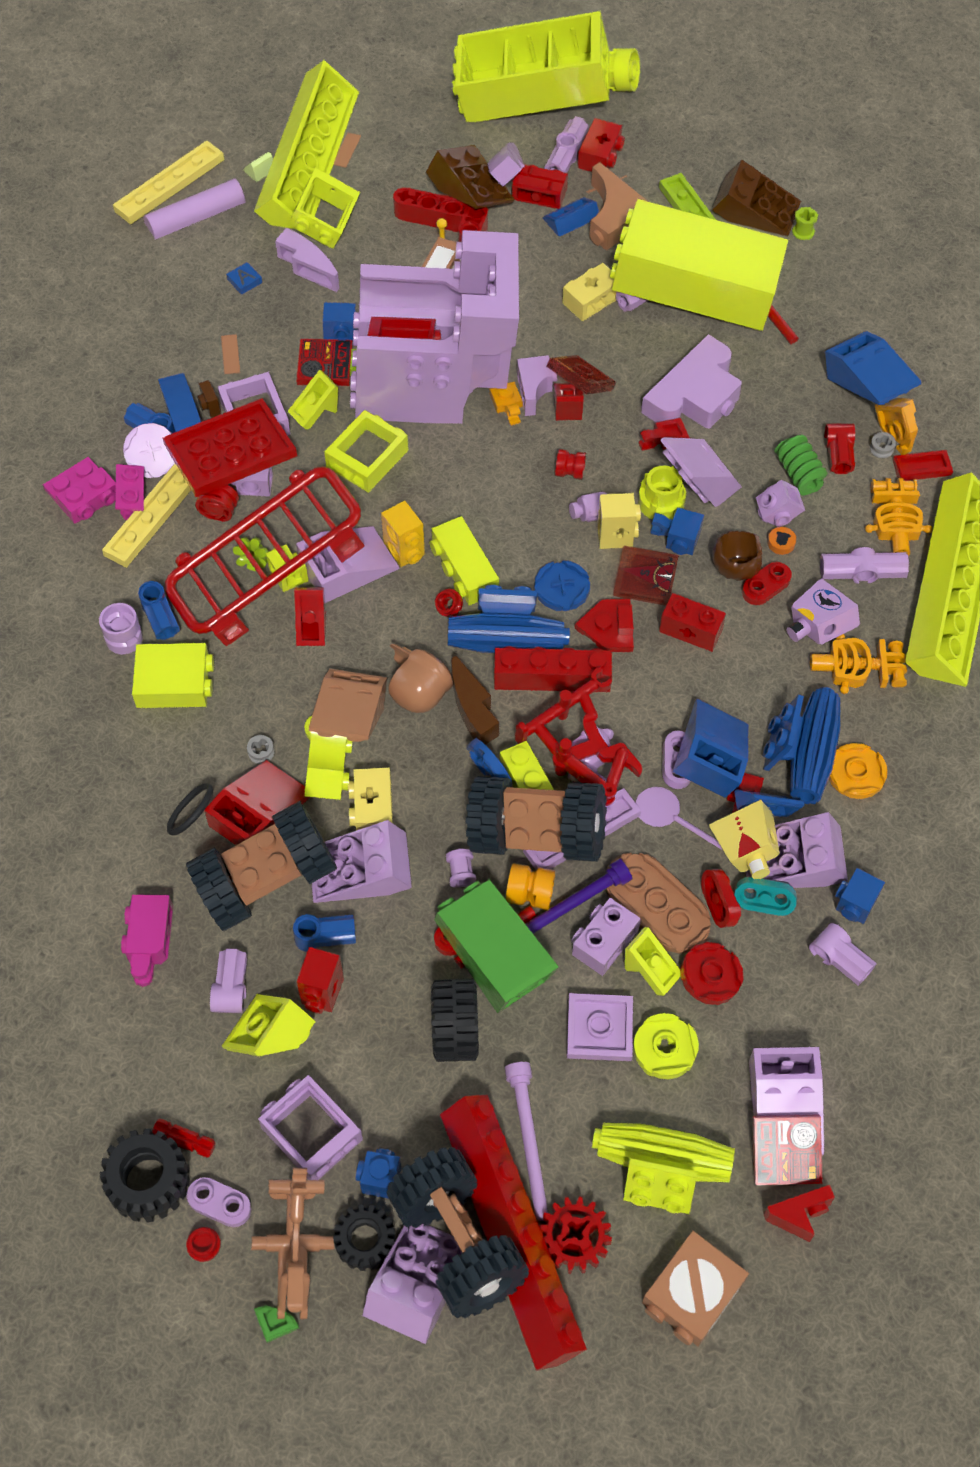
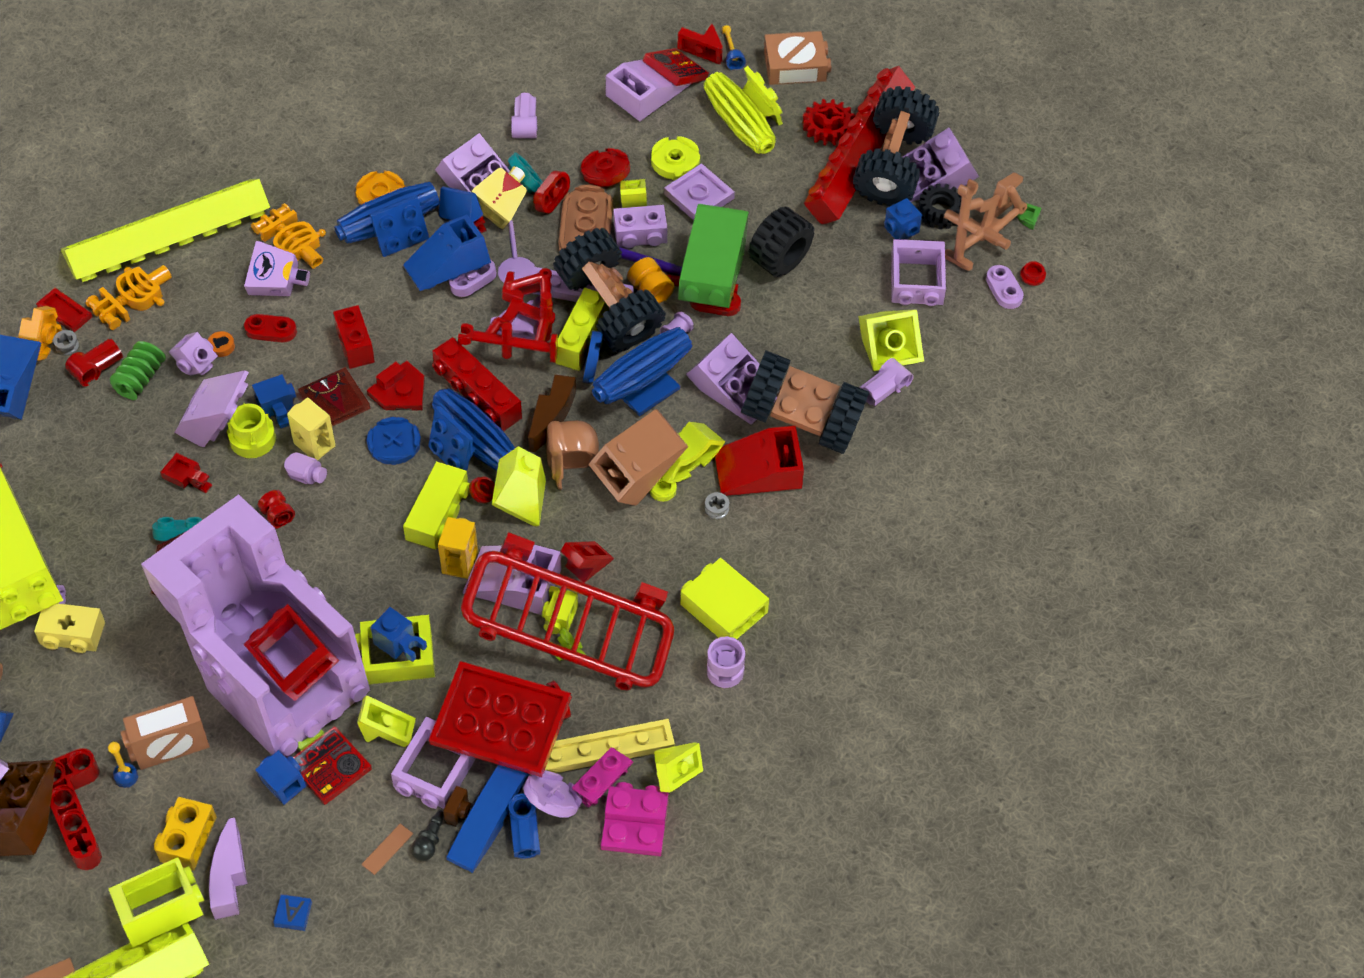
camera: 135 degrees left, 5 degrees down
(82, 540) = (677, 765): none -> neon yellow slope
(147, 935) = (909, 448): dark pink hinge -> none
(157, 1198) = (1037, 336): black tyre -> none
(158, 611) = (683, 659): blue piece -> none
(186, 1138) = (994, 331): red axle -> none
(196, 813) = (829, 504): black tyre -> none
(205, 368) = (424, 846): none -> pearl dark grey bar
(320, 980) = (834, 325): red brick -> none
(328, 931) = (805, 361): blue piece -> none
(354, 249) = (191, 834): none -> yellow brick
(363, 431) = (395, 635): none -> blue brick
(370, 785) = (687, 404): light yellow brick -> none
(415, 616) = (520, 486): none -> neon yellow slope
(432, 786) = (641, 374): none -> blue plate
(518, 1076) = (773, 204): lavender piece -> none
(615, 398) = (167, 527): none -> teal plate
(696, 387) = (115, 485): lavender brick -> none
(738, 555) = (269, 345): reddish brown hair -> none
(755, 1230) = (733, 56): none -> blue hinge
(858, 896) = (479, 122): blue brick -> none
(864, 565) = (201, 281): lavender piece -> none

